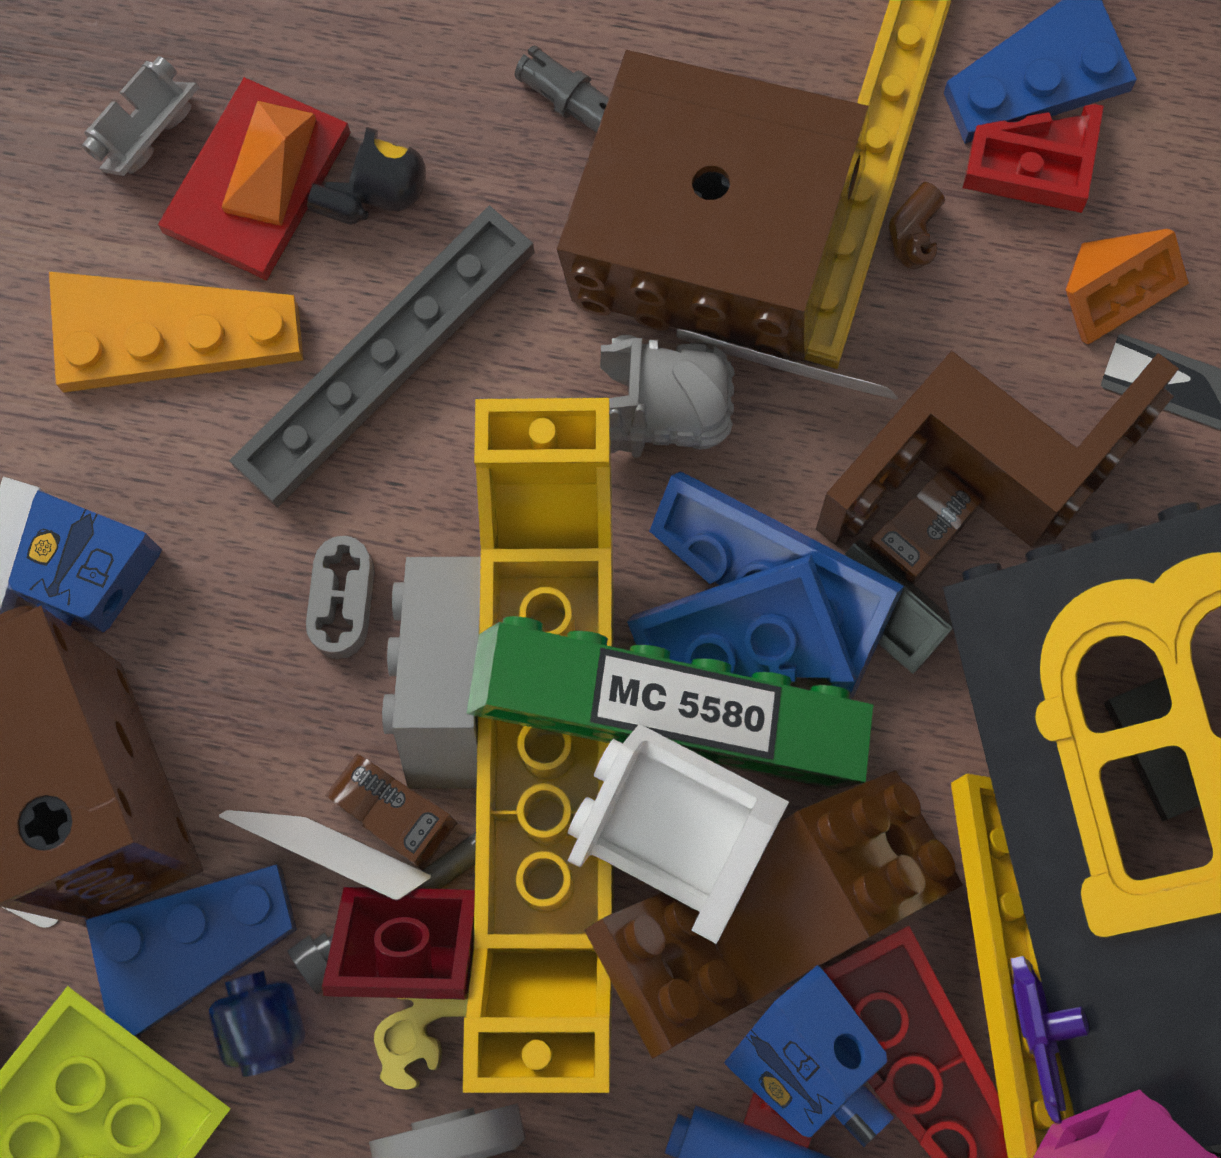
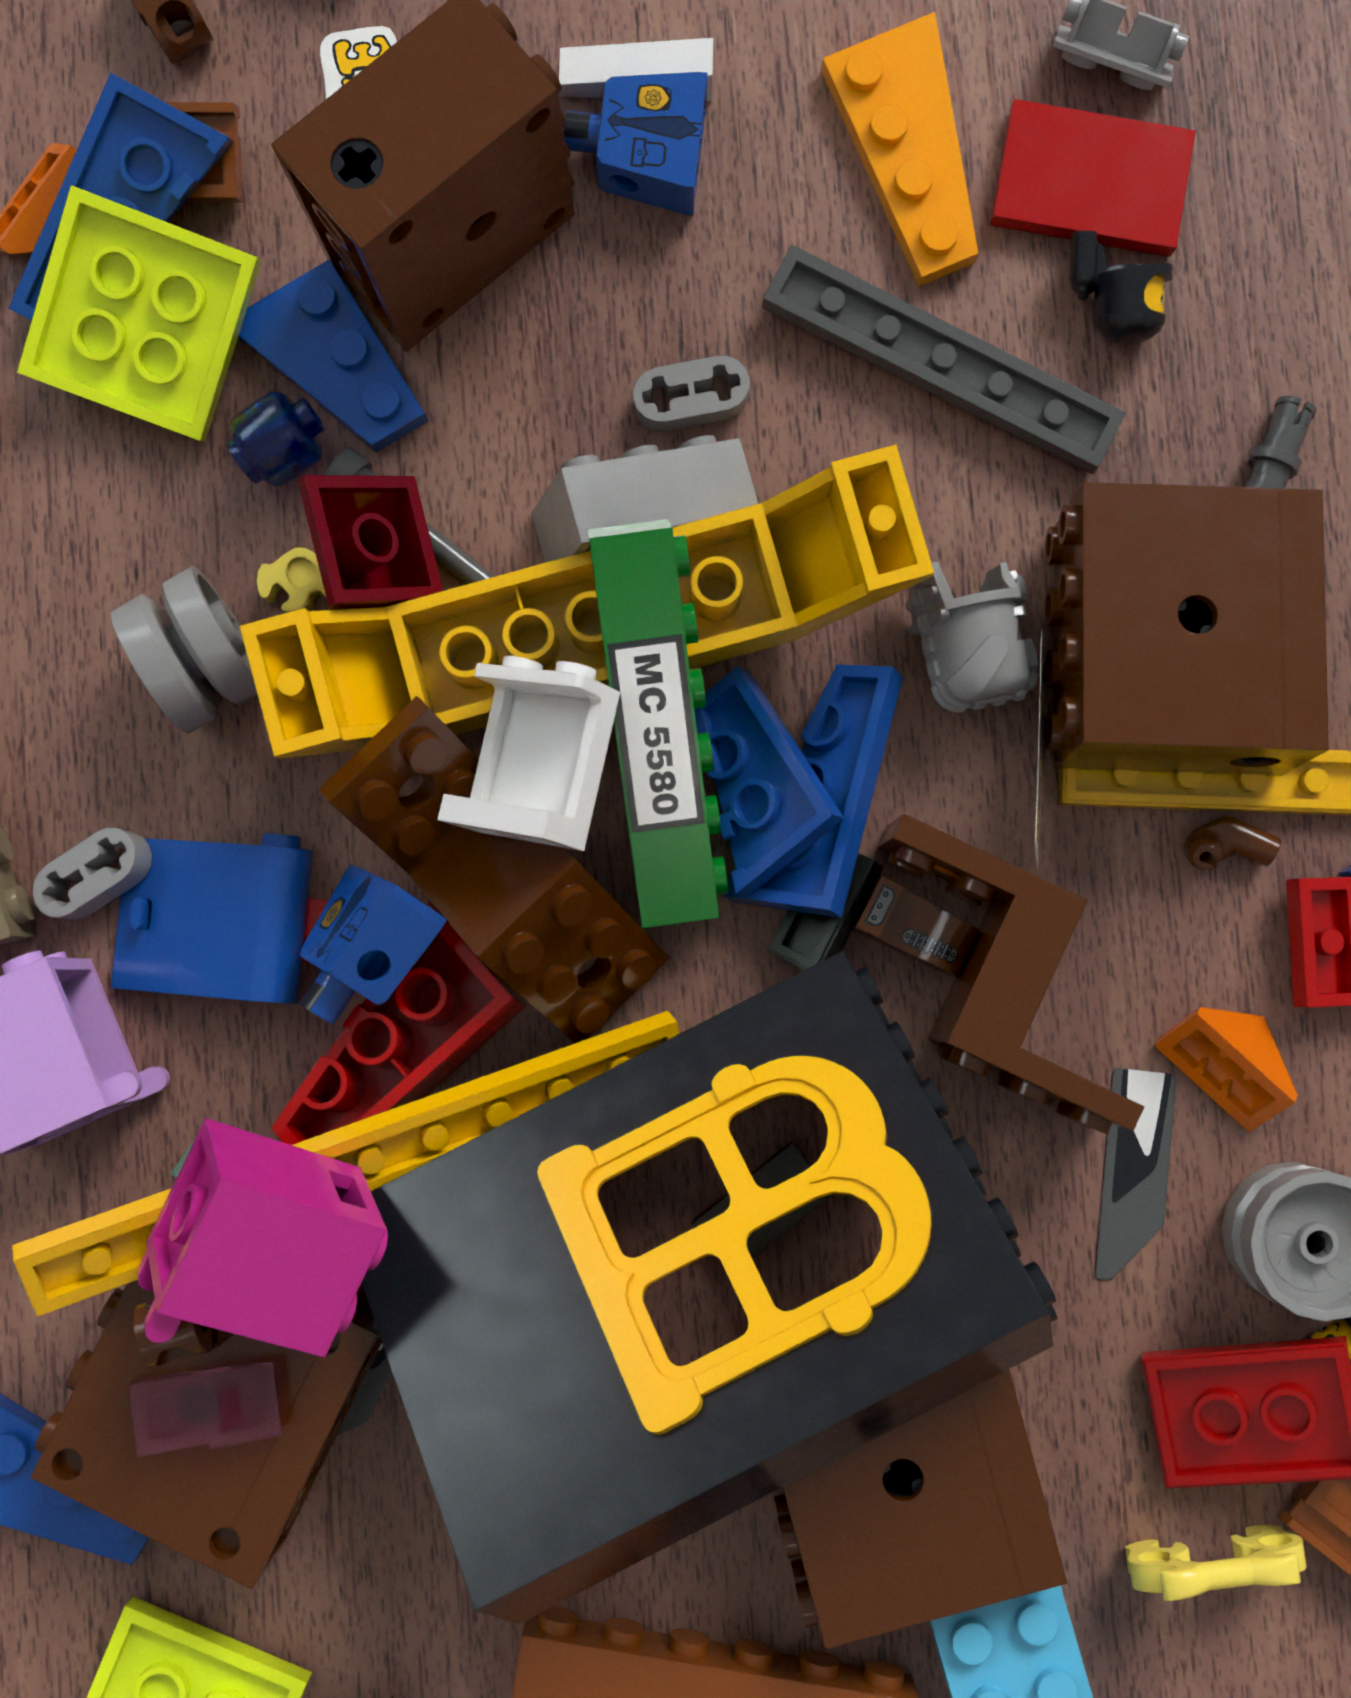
camera: 70 degrees right, 10 degrees up
(269, 163) = (1109, 184): orange slope -> none
(333, 851) = (447, 458): white sticker -> none
(392, 811) = (501, 502): reddish brown leg -> none
(1044, 1031) = (441, 1141): dark purple piece -> none

